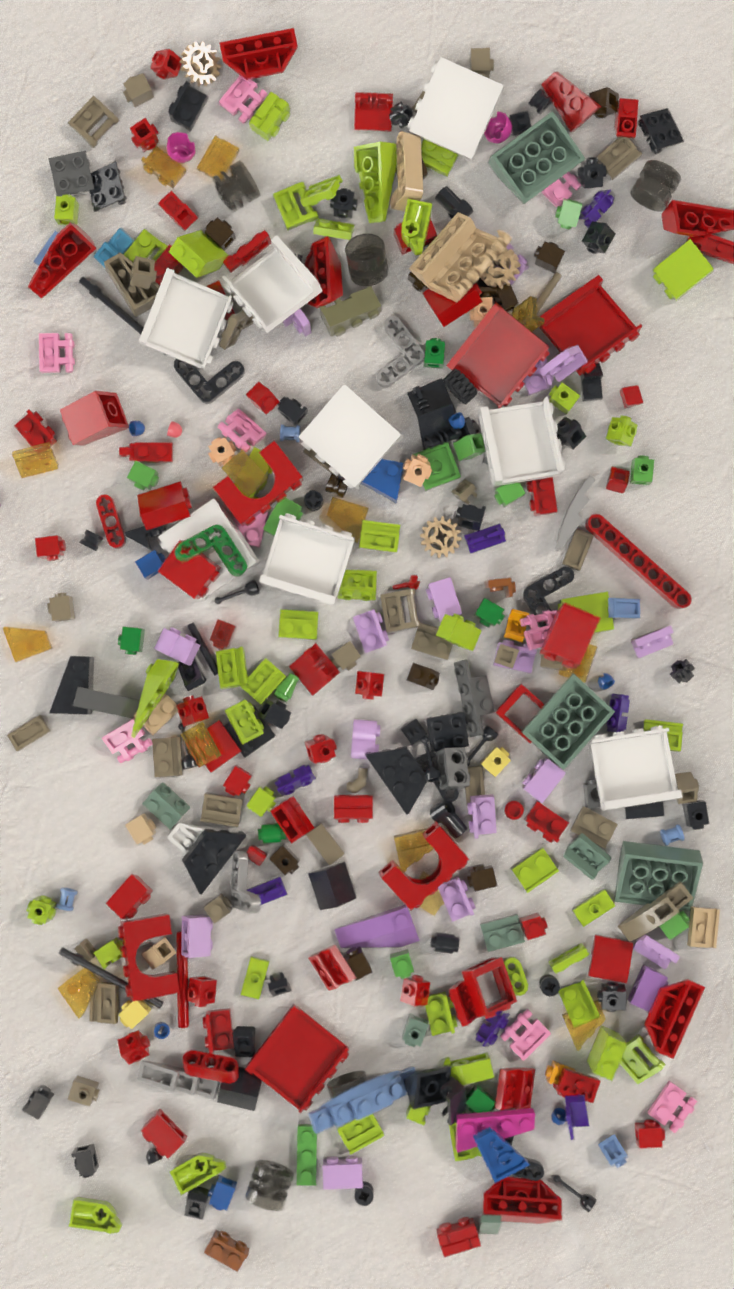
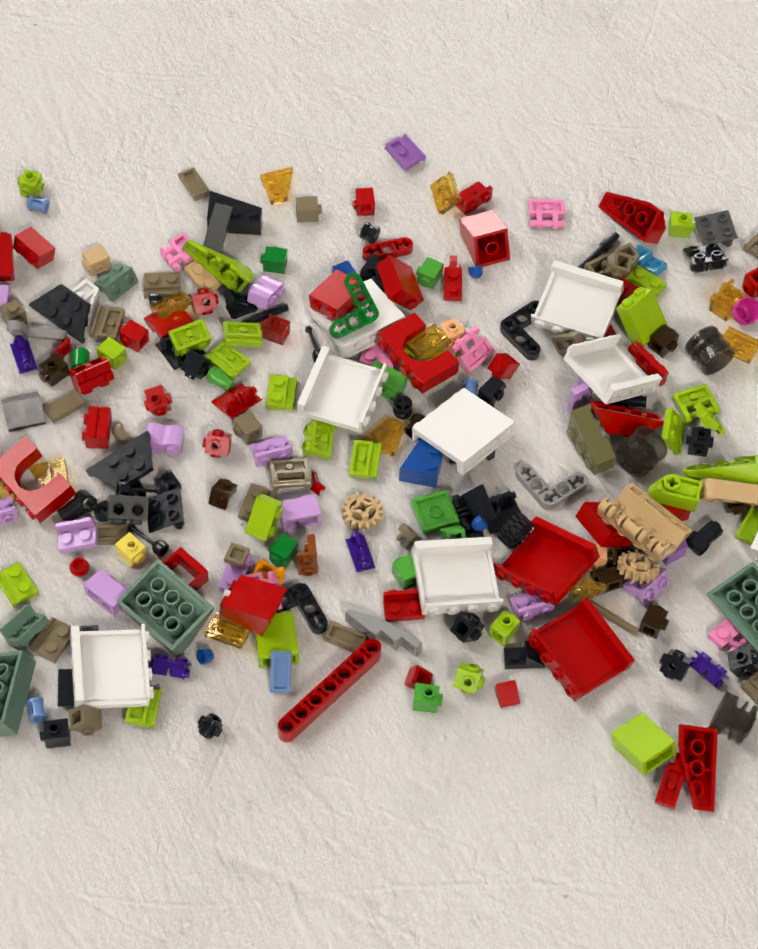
camera: 85 degrees right, 30 degrees down
(174, 430) = (474, 299): coral hinge -> none
(177, 211) = (686, 311): red slope -> none
(303, 777) = (126, 377): dark purple hinge -> none
(417, 476) = (429, 485): light nougat brick -> none
(434, 353) = (551, 511): green brick -> none
(470, 516) = (382, 538): black brick -> none
(474, 696) = (198, 538): dark grey bracket -> none
(482, 877) = (14, 534): dark brown brick -> none
(546, 821) = (62, 594): red bracket -> none
(564, 363) = (540, 614): lavender bracket -> none
(568, 213) = (700, 638): brick -> none
(653, 642) = (244, 699): lavender bracket -> none

